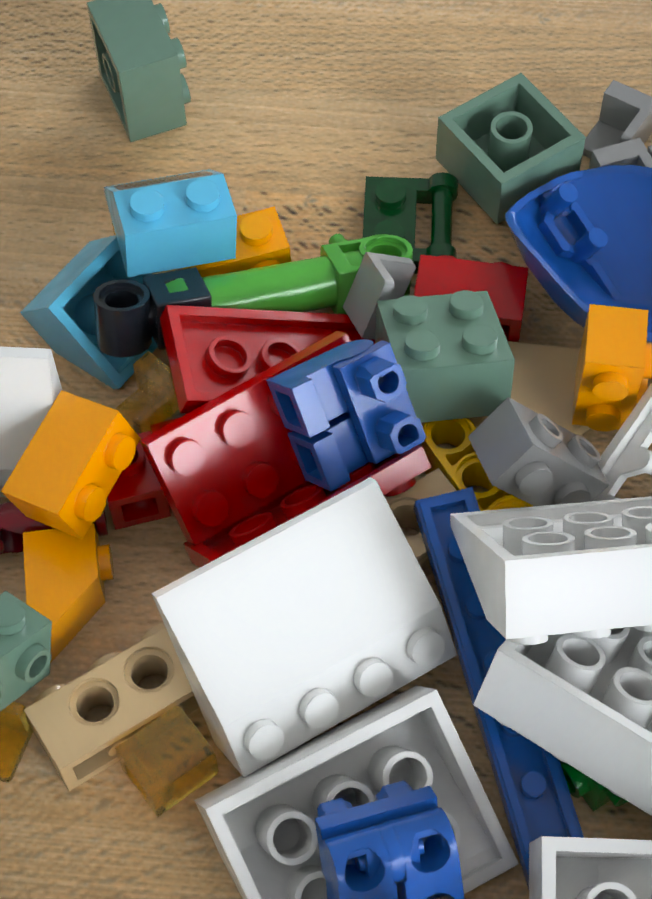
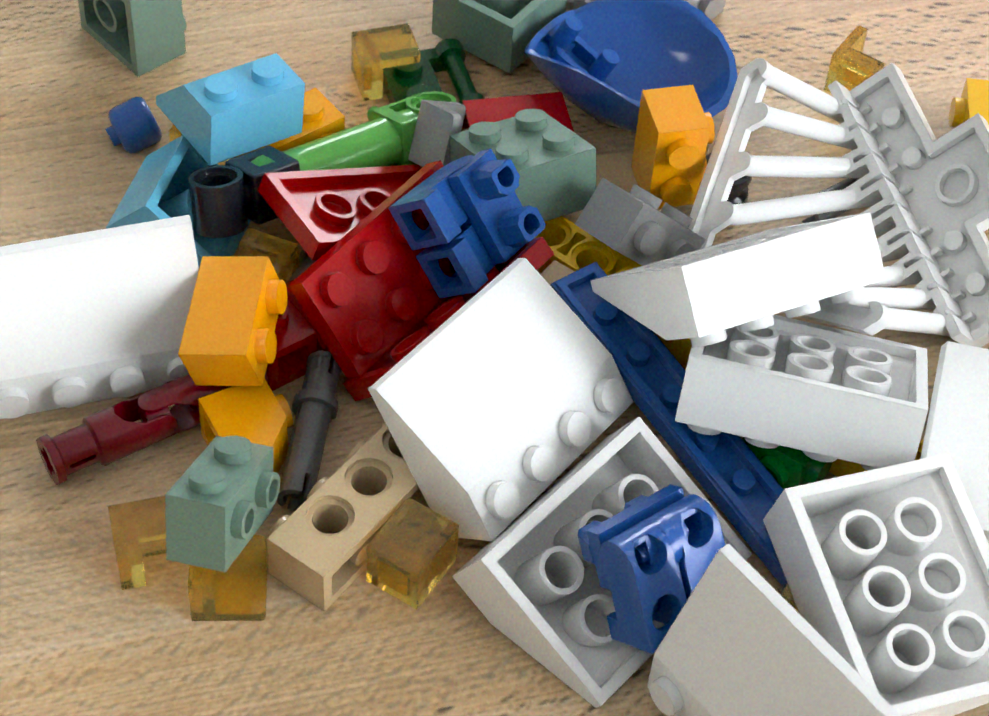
camera: 25 degrees left, 10 degrees down
(90, 199) = (133, 125): none -> blue piece
(139, 569) = (313, 412): none -> dark grey pin
(369, 174) = (378, 50): none -> clear yellow panel

